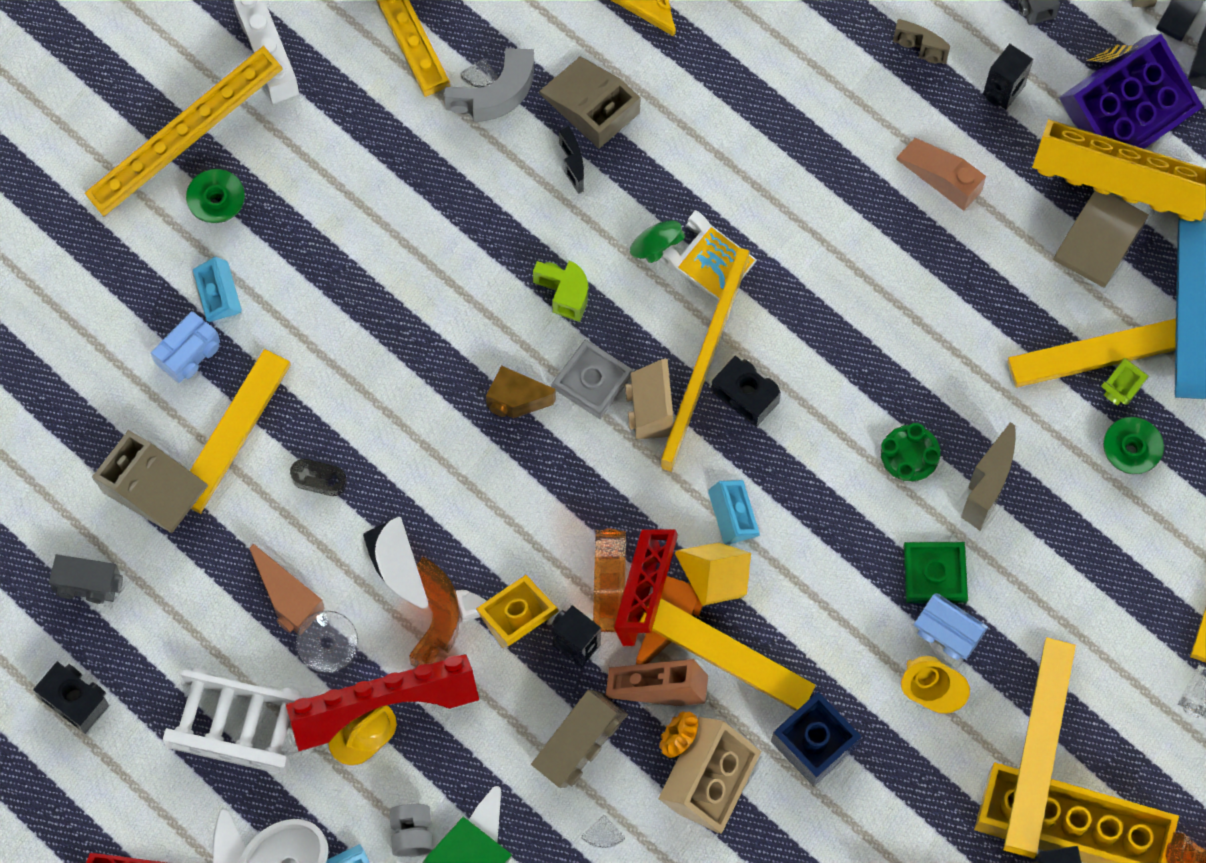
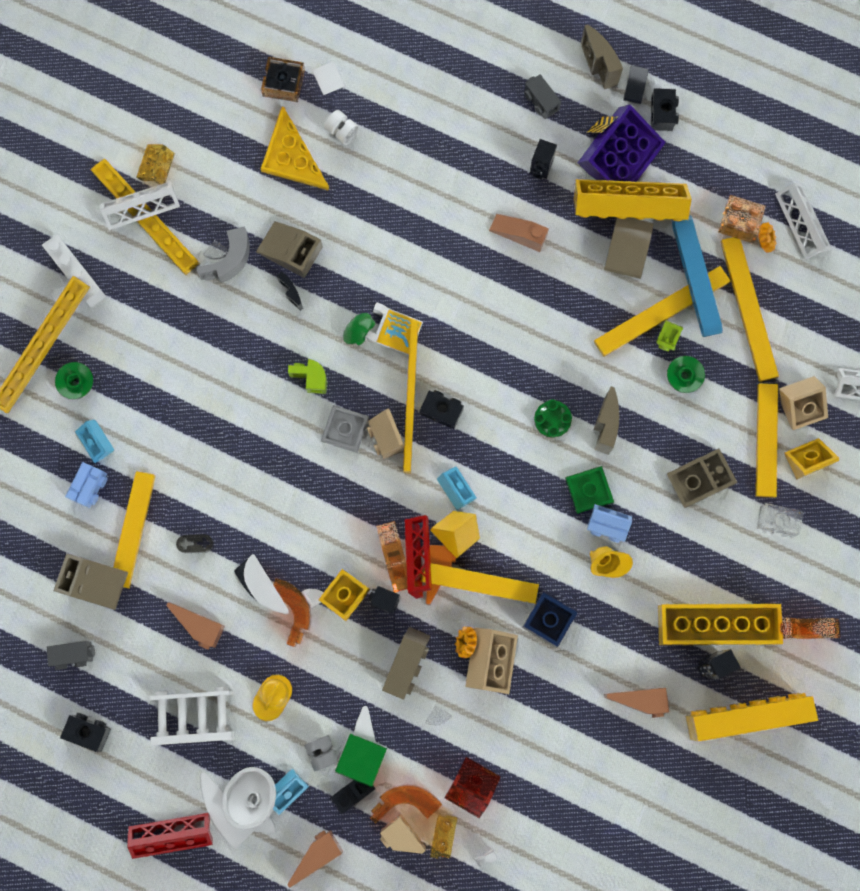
camera: 15 degrees left, 10 degrees up
(323, 716) = (245, 699): red arch -> none
(330, 625) = (234, 659): clear dish -> none
(517, 394) = (301, 454): pearl gold slope -> none
(659, 683) = (443, 613): nougat slope -> none
(931, 46) = (490, 152): dark tan slope -> none
(1039, 748) = (686, 587): yellow tile -> none
(1113, 603) = (702, 478): none -> dark tan slope

